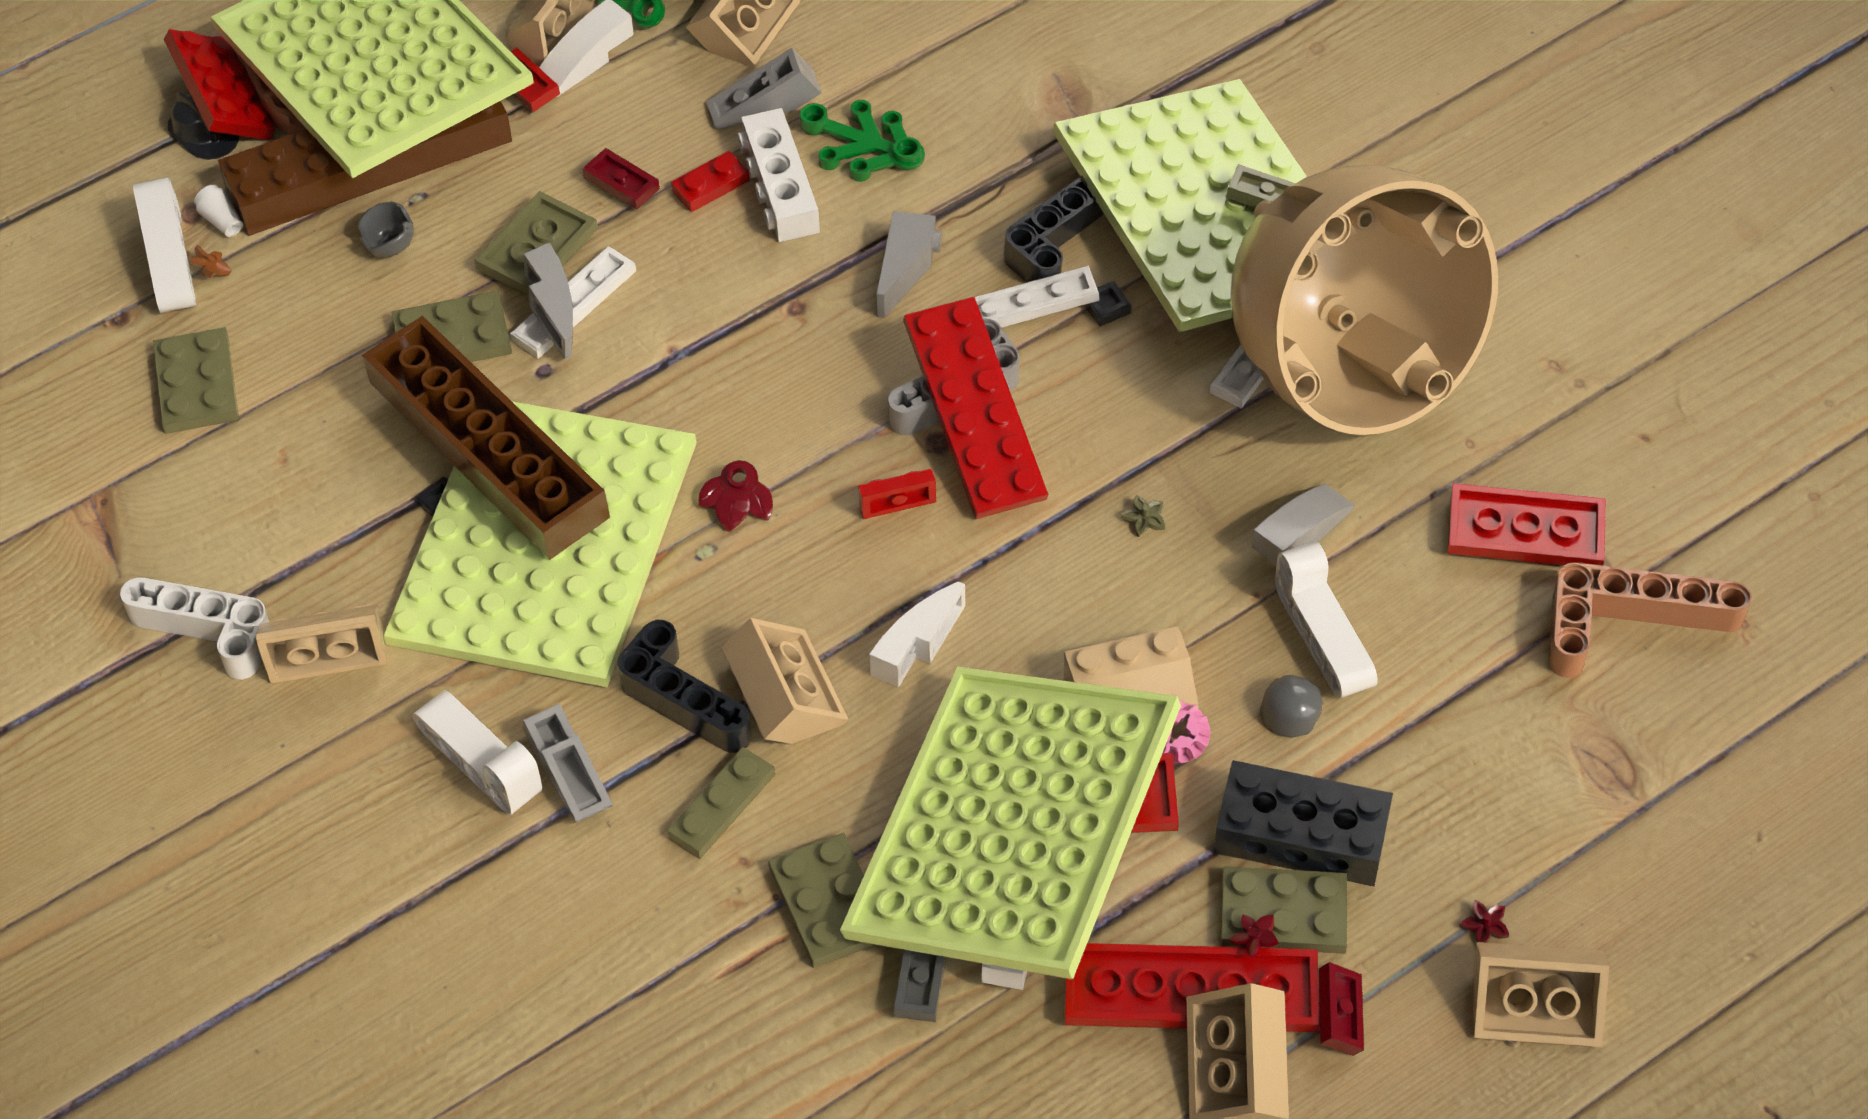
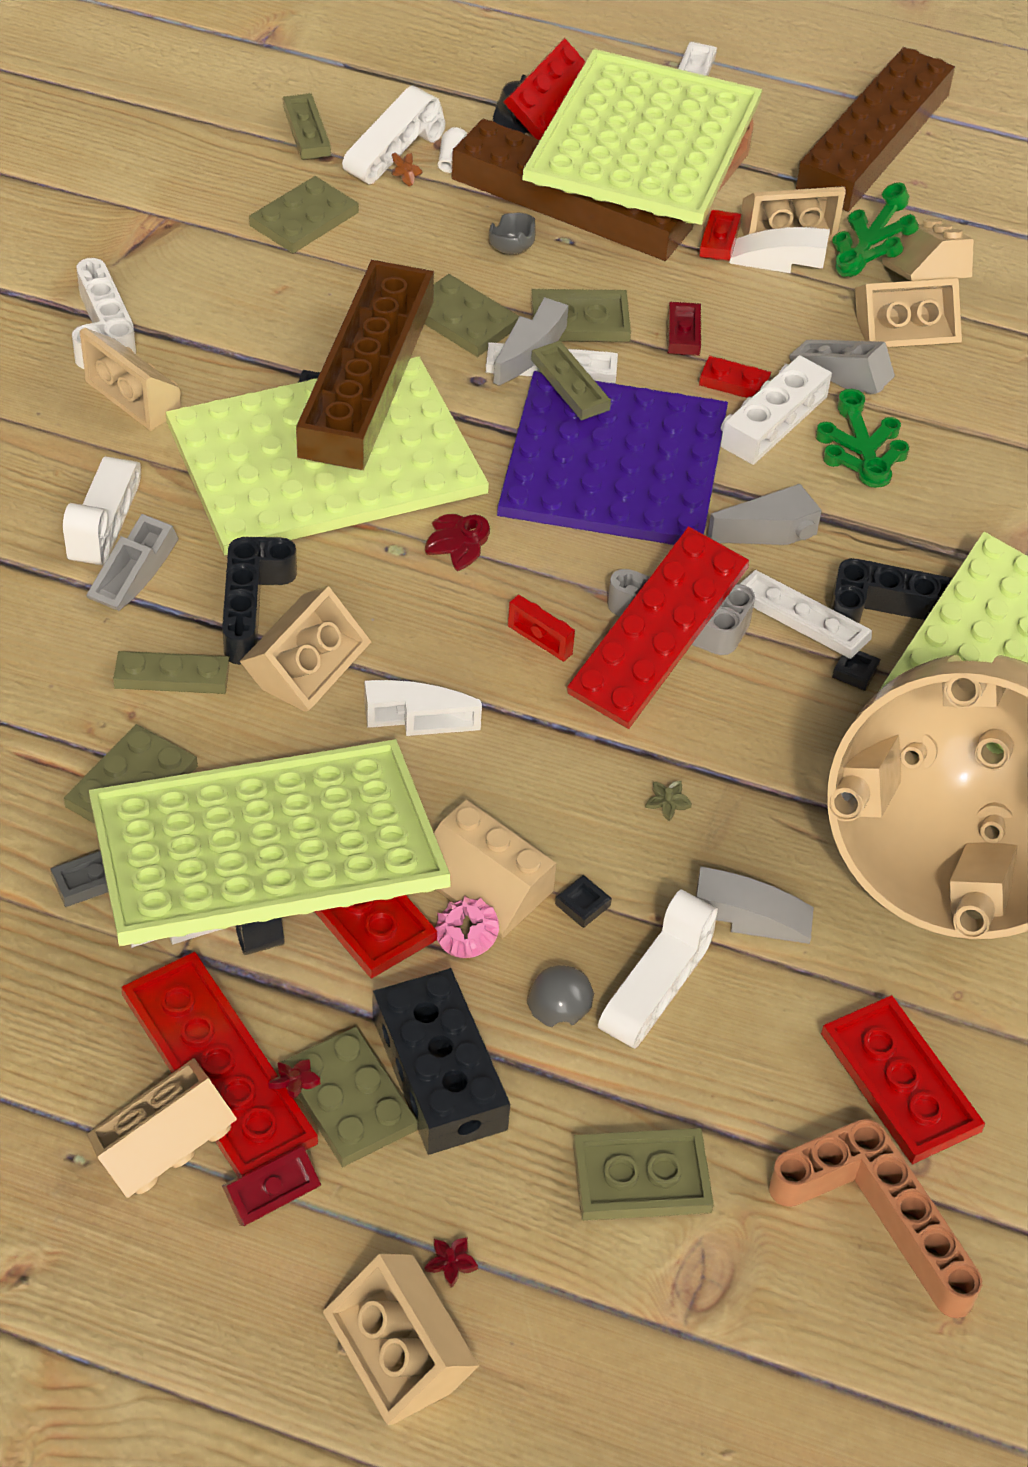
camera: 50 degrees right, 5 degrees down
(70, 307) = (306, 126): none -> olive plate
(629, 298) = (570, 380): none -> olive plate
(732, 326) = (621, 473): none -> dark purple plate
(1206, 636) = (583, 901): none -> black tile
(1498, 747) = (642, 1174): none -> olive plate

